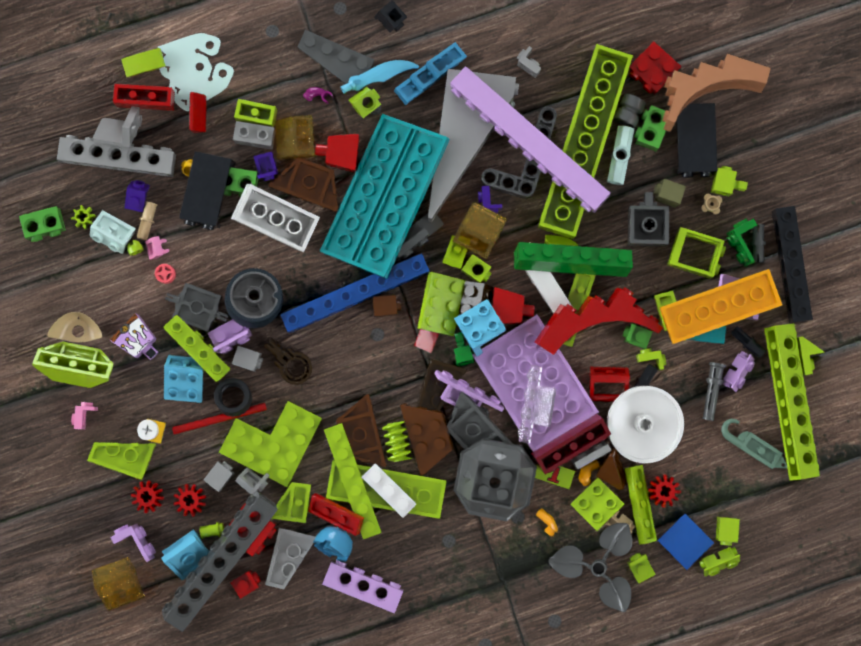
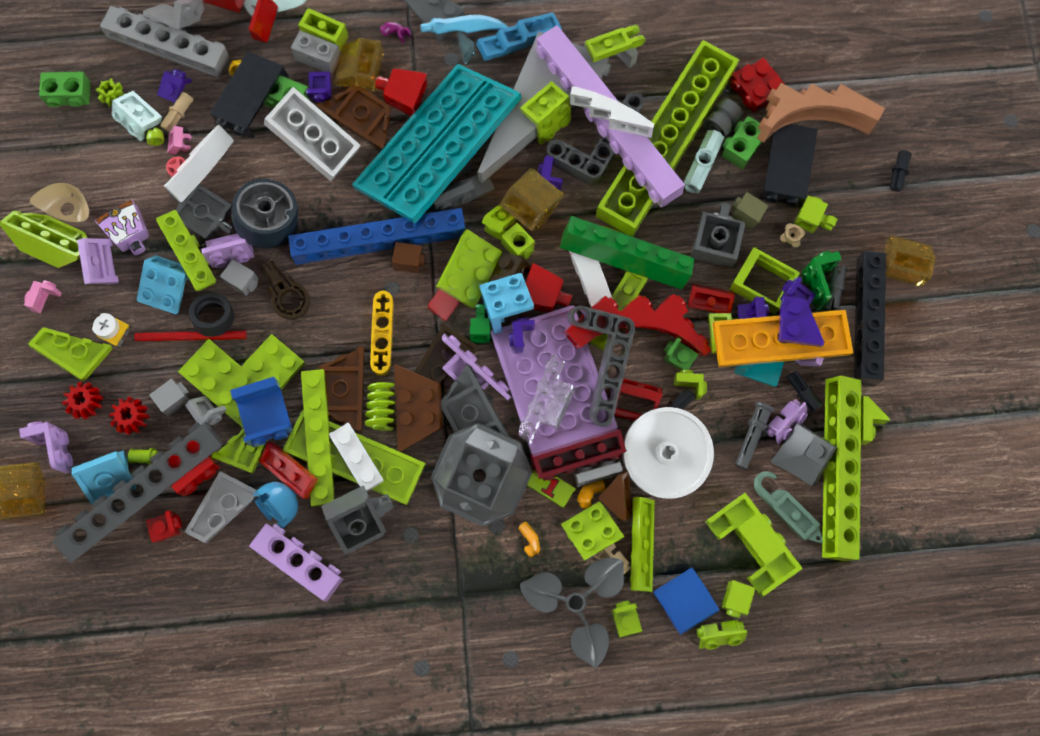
camera: 10 degrees right, 10 degrees down
(124, 376) = (97, 261): none -> lavender plate
(184, 264) = (199, 163): none -> white slope
(301, 472) = (262, 411): none -> blue panel
(357, 101) = (433, 46): lime brick -> none
(377, 377) = (385, 333): none -> yellow beam
(385, 96) = (466, 47): none -> clear light blue slope
(404, 541) = (357, 518): none -> dark grey hinge
(474, 145) = (548, 111): none -> lime bracket
(496, 357) = (516, 337): none -> dark purple bracket
(517, 67) = (613, 43): none -> lime hinge
(541, 145) = (619, 115): none -> white slope
(578, 360) = (609, 359): none -> dark grey beam
(653, 278) = (710, 299): none -> red slope
(670, 493) = (679, 541): red gear -> none
(691, 284) = (754, 310): none -> dark purple bracket
(726, 262) = (797, 290): none -> dark purple bracket
(731, 292) = (798, 323): none -> dark purple wing
(736, 478) = (760, 539): none -> lime bracket
(758, 397) = (804, 454): none -> dark grey plate
(794, 121) = (900, 170): none -> black axle
(816, 203) = (909, 261): none -> clear yellow slope

